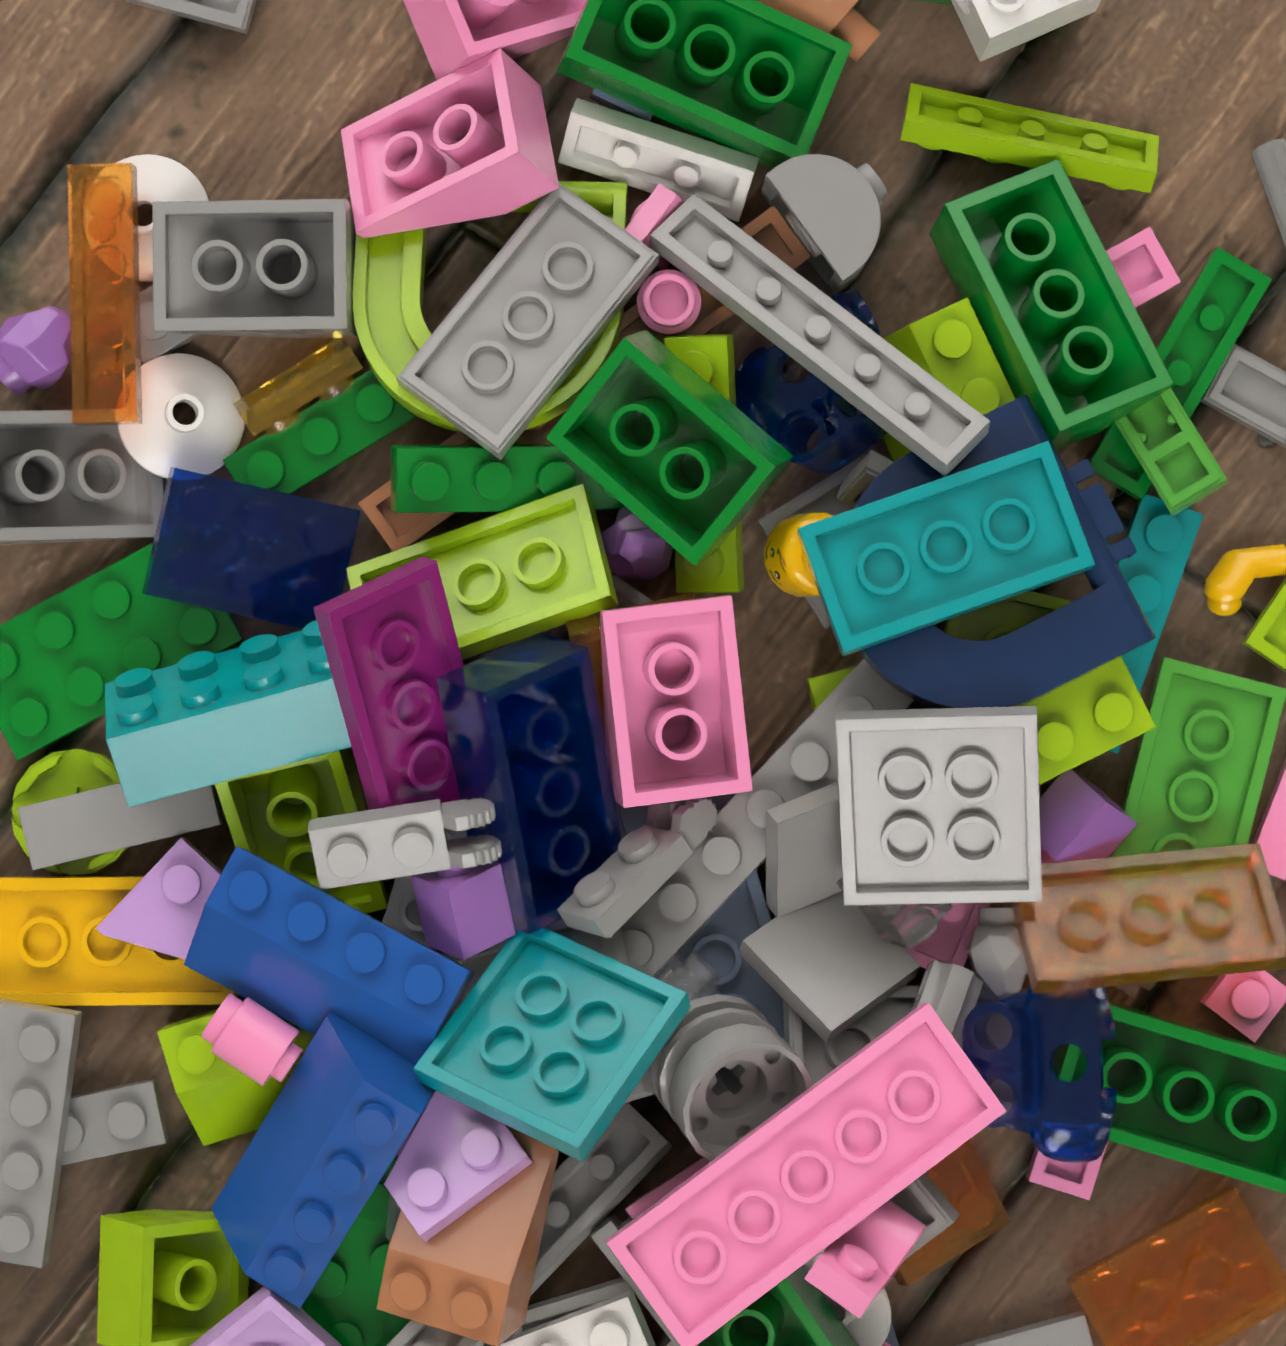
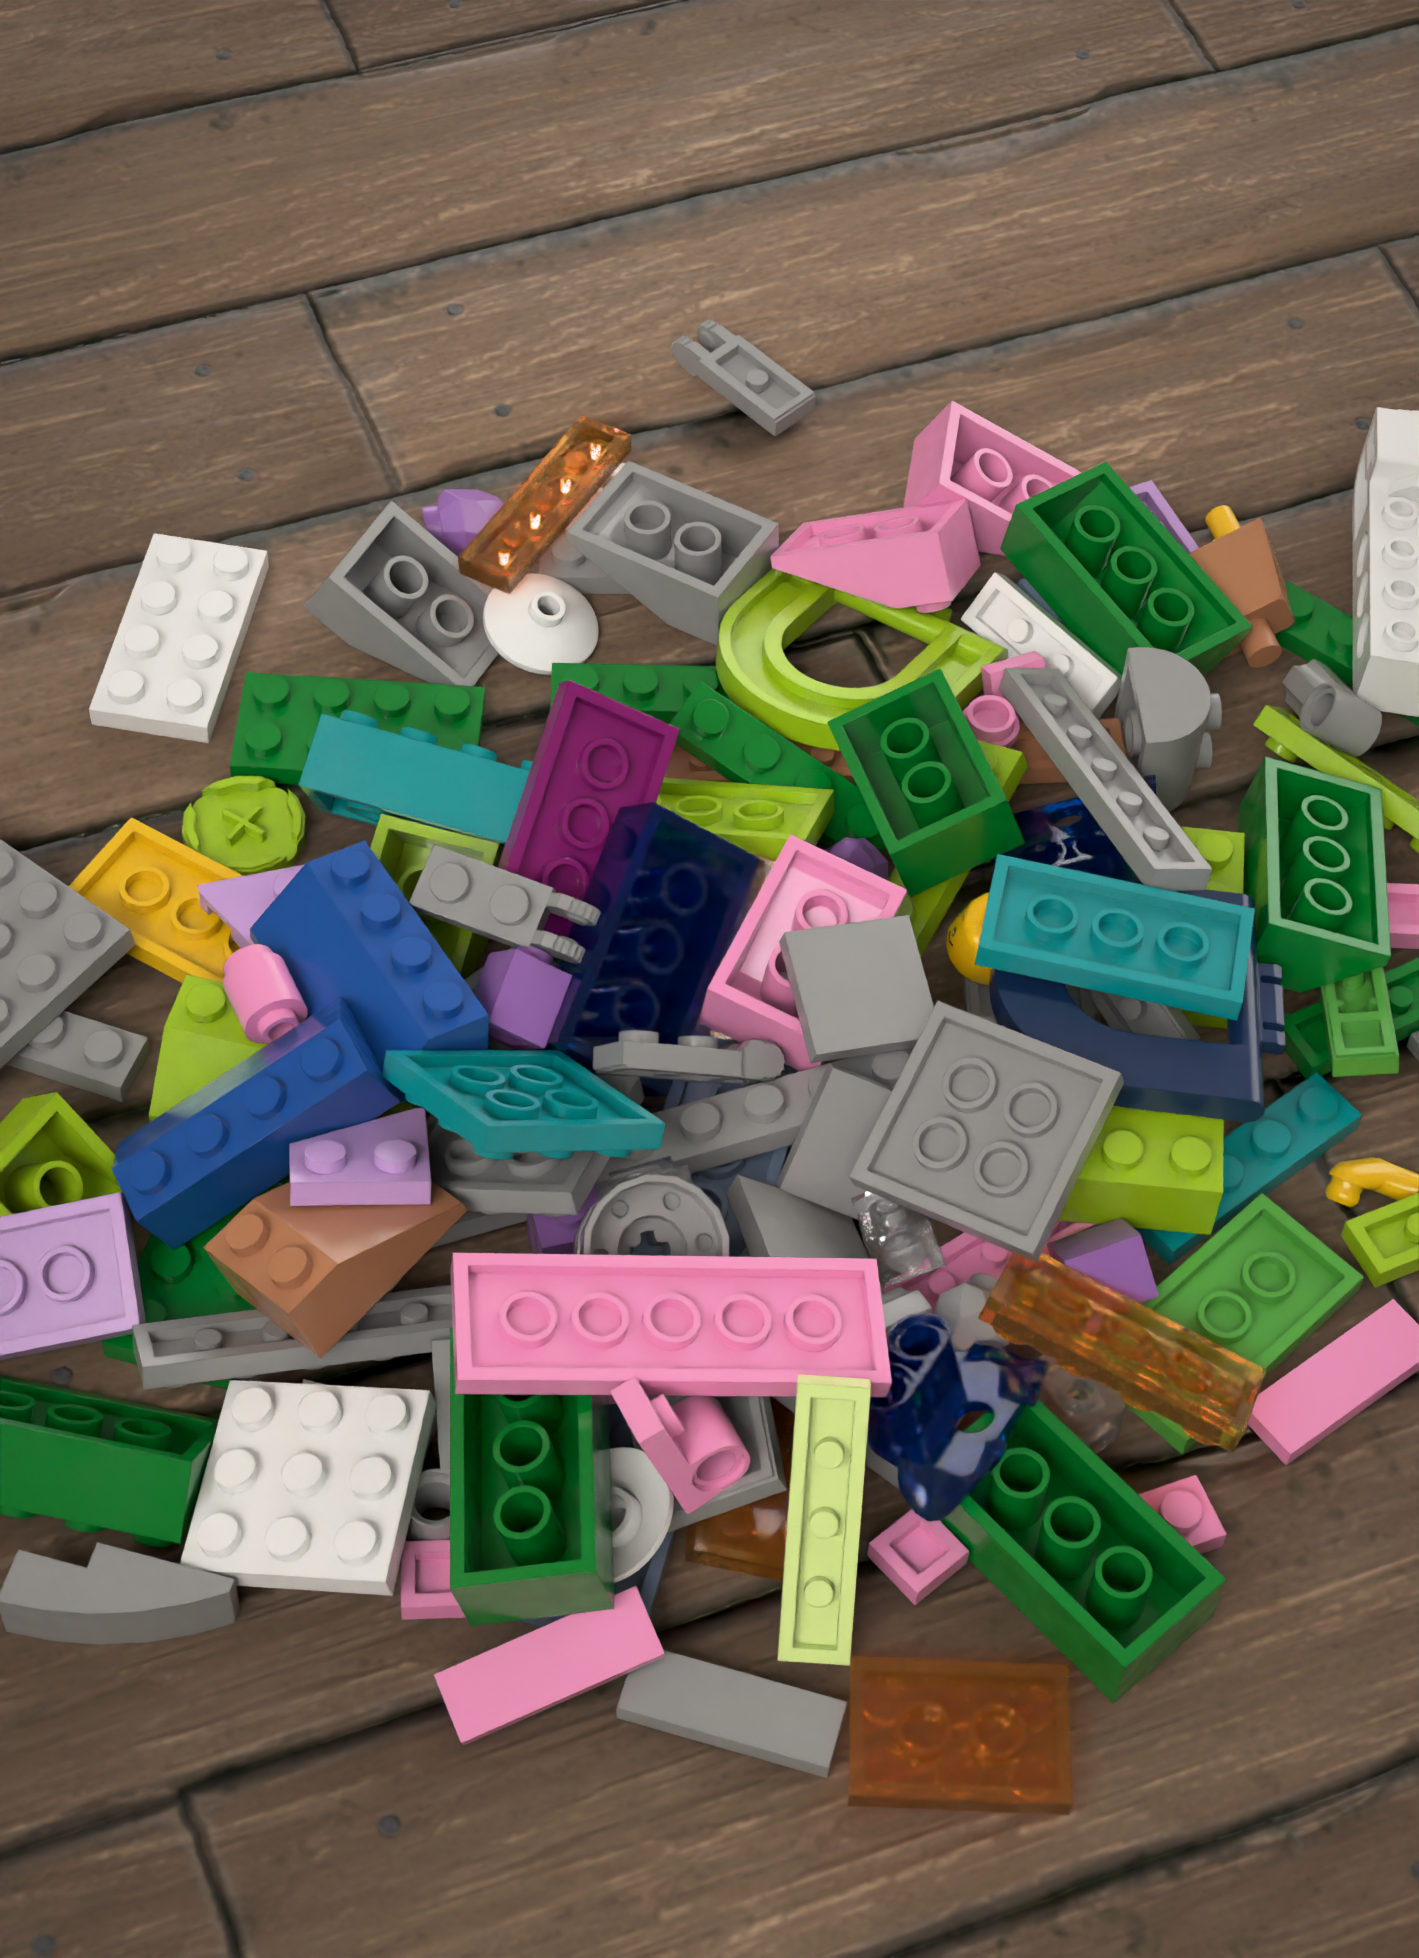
camera: 30 degrees right, 35 degrees down
(103, 822) = (266, 828): light grey tile -> none
(248, 549) = (499, 693): clear blue plate -> none
(320, 374) = (648, 641): clear yellow plate -> none
(528, 320) = (833, 669): light grey tile -> none
(752, 727) = (857, 987): none -> light grey tile
(969, 90) = (1331, 709): none -> light grey piece
(1001, 1219) = (823, 1519): none -> yellowish green plate

